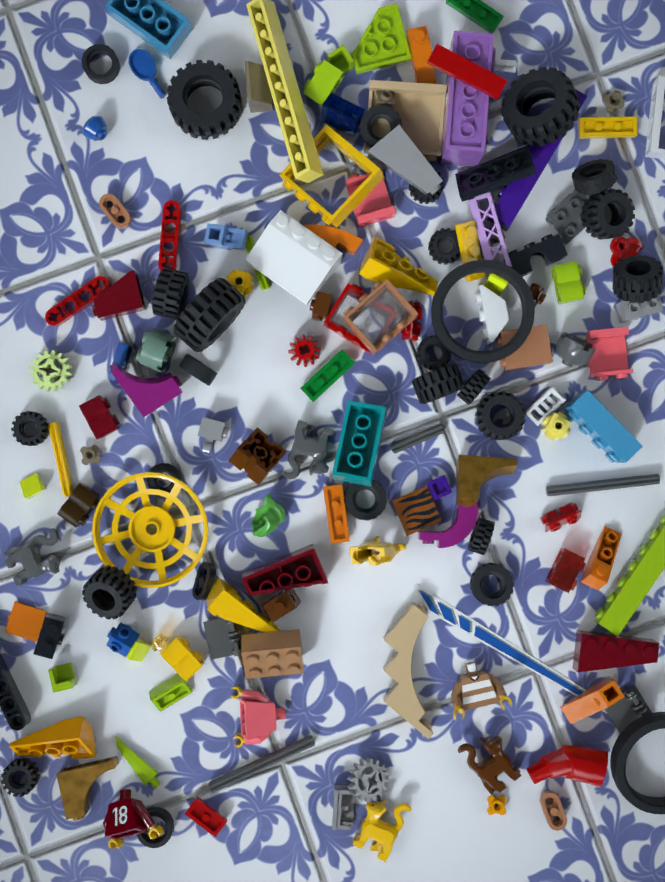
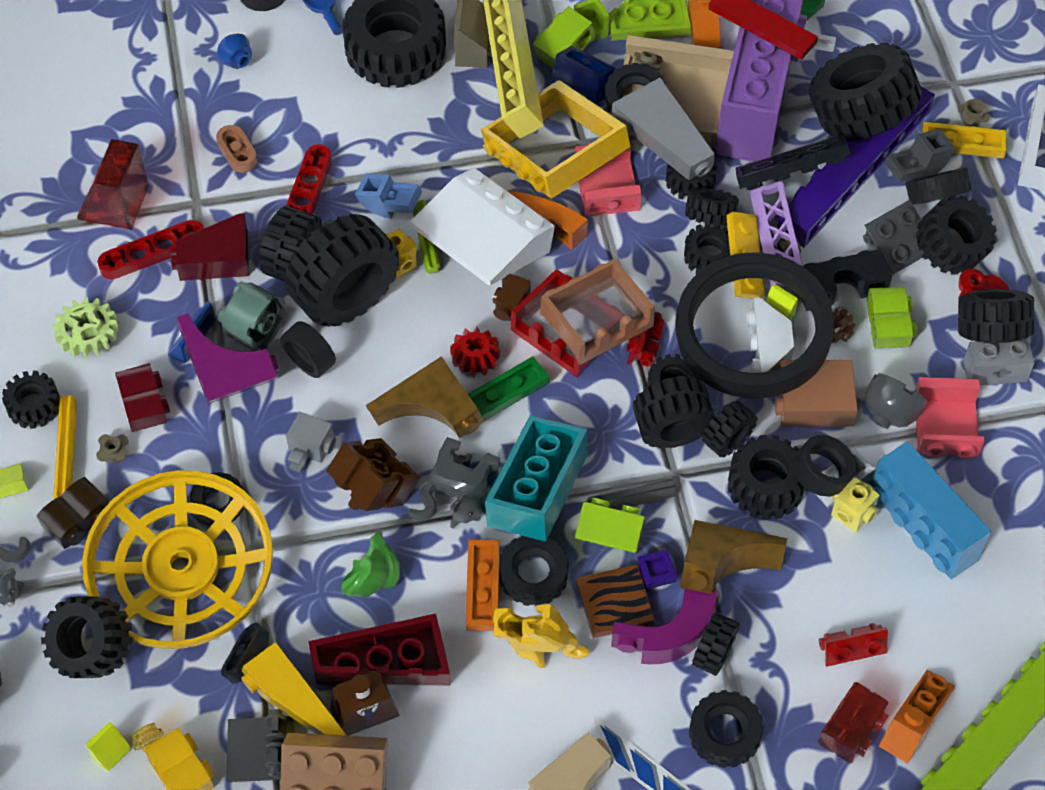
camera: 10 degrees right, 30 degrees down
(42, 261) = (116, 187): none -> clear red slope
(122, 639) = (85, 717): blue brick -> none
(288, 391) = (431, 394): none -> pearl gold arch
(383, 263) = (609, 245): yellow wedge -> none
(408, 466) = (610, 526): none -> lime brick
(450, 217) = (710, 205): none -> black tyre
(549, 407) = (833, 450): none -> black tyre
(580, 151) = (926, 157): none -> dark grey brick
(600, 485) = (927, 605): dark grey axle -> none

